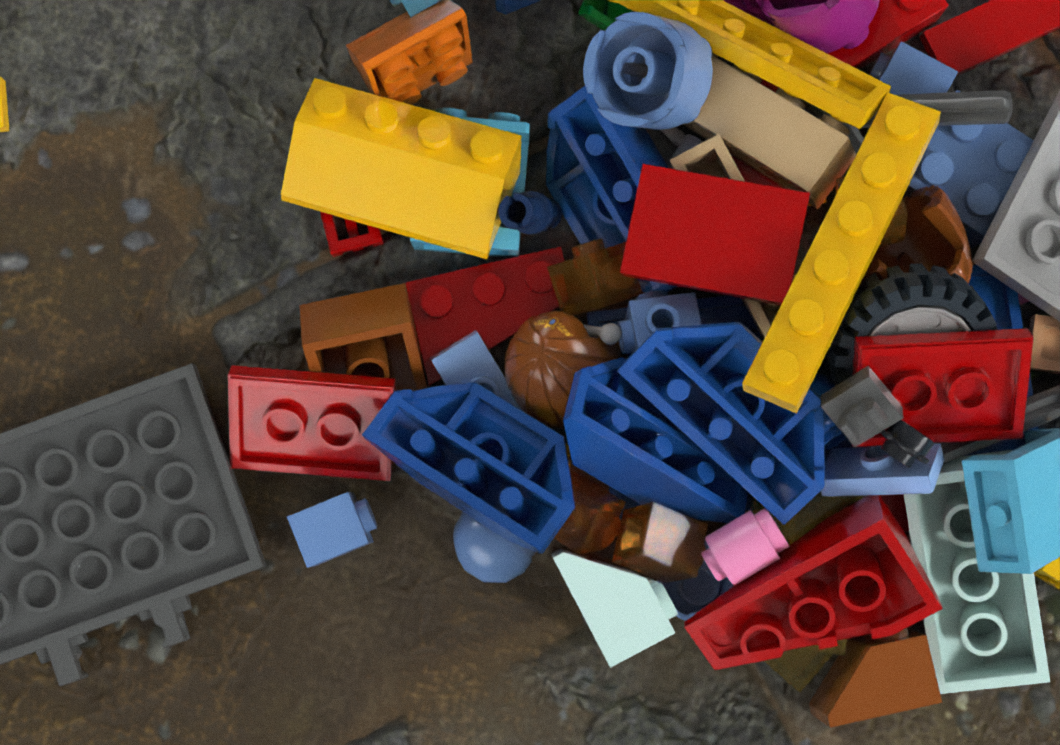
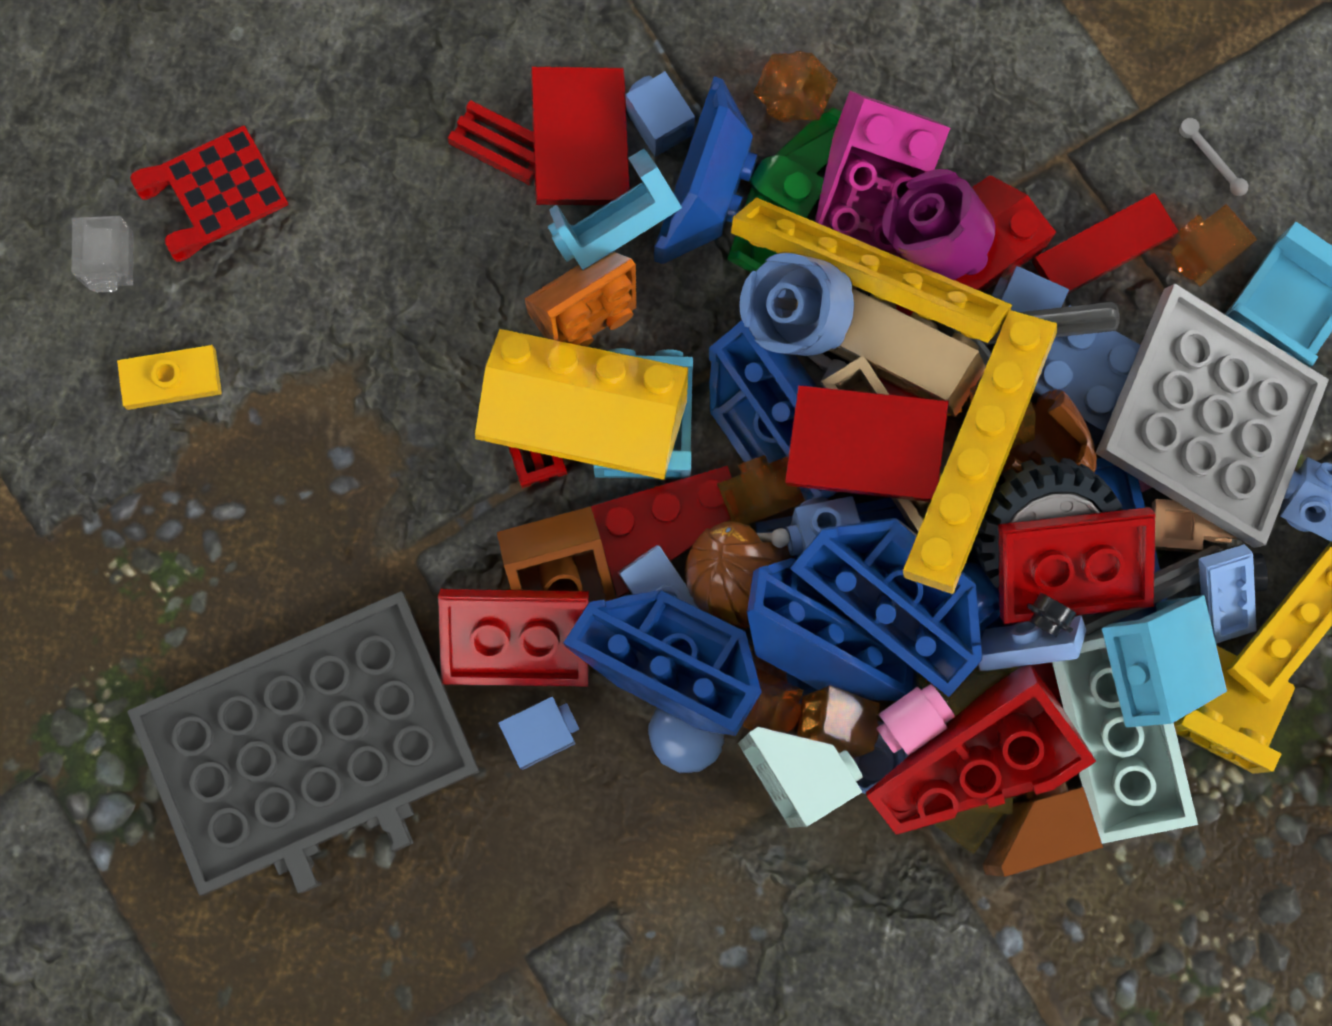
camera: 10 degrees left, 5 degrees down
(530, 212) = (699, 436): dark blue pin -> none
(861, 406) = (1009, 585): dark grey tile -> none

